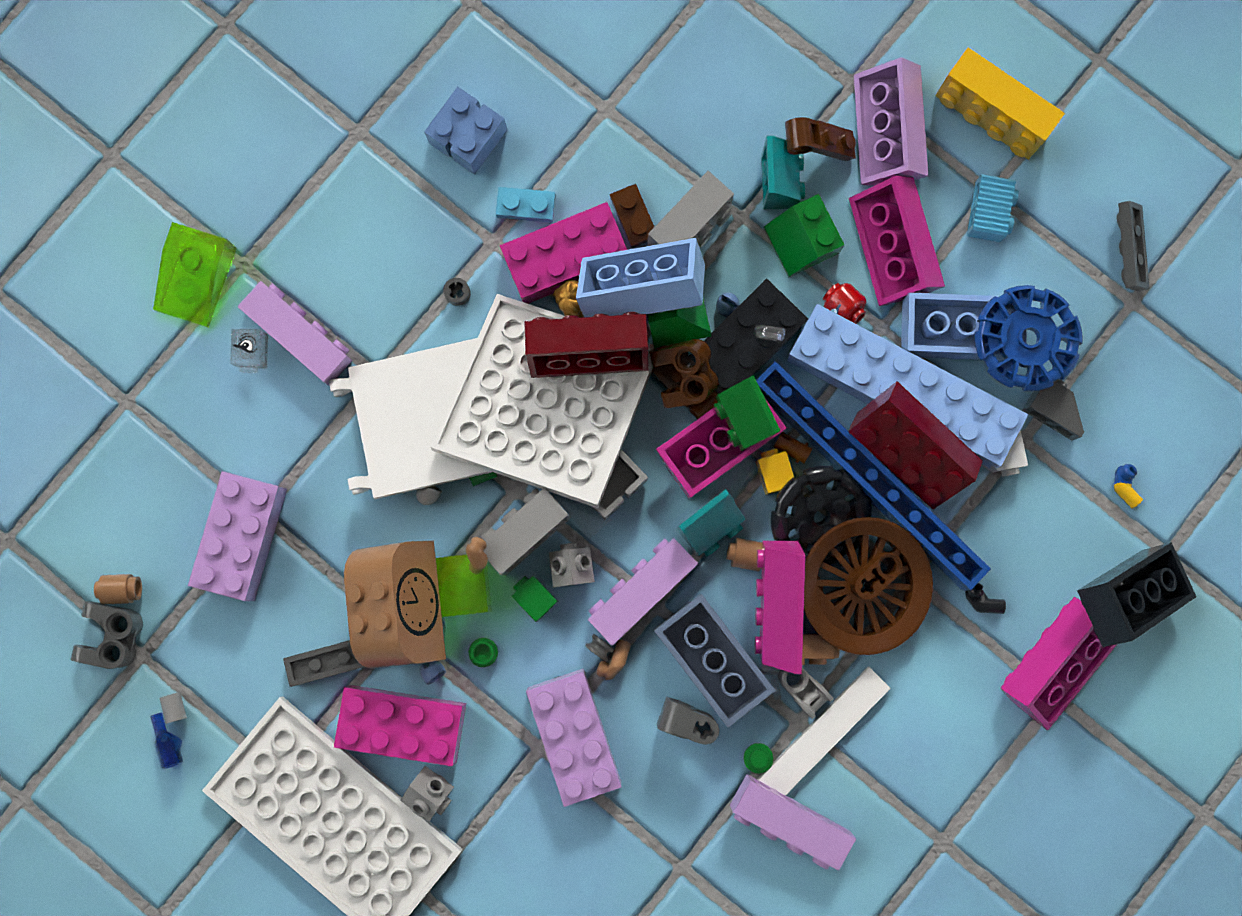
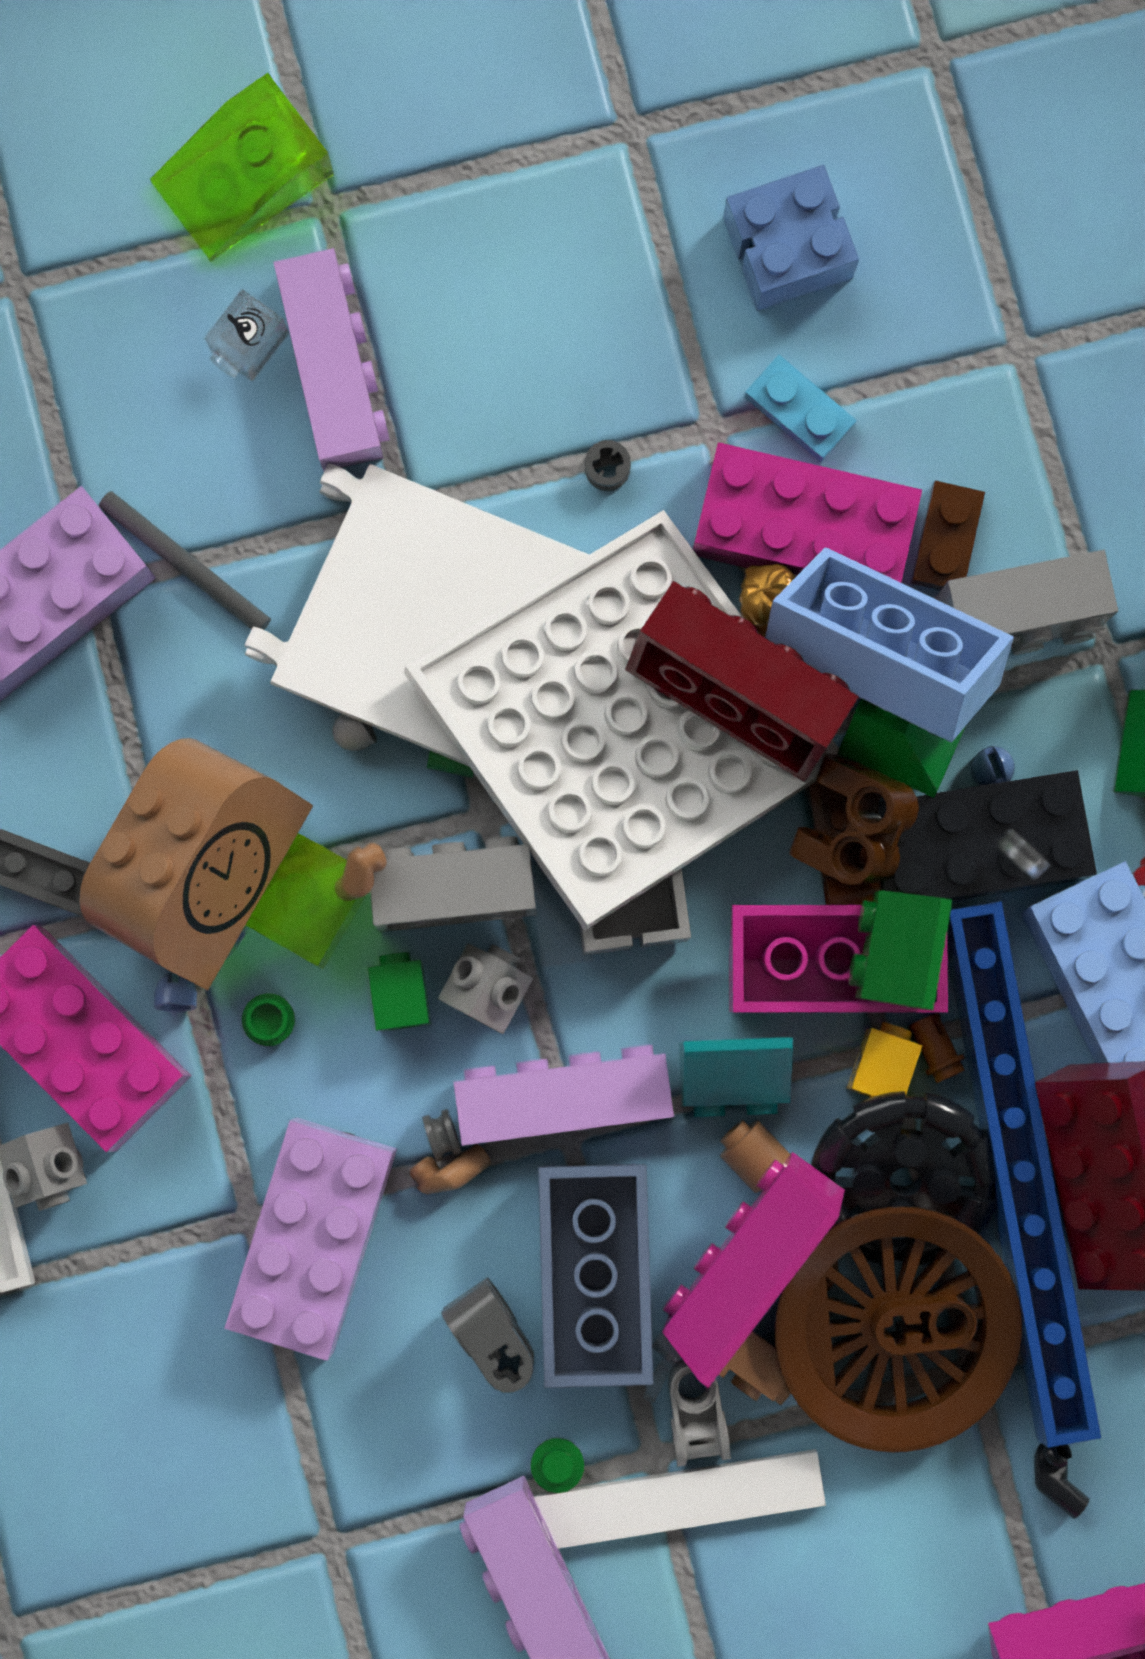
camera: 30 degrees right, 0 degrees up
(294, 472) = (183, 561): none -> dark grey bar

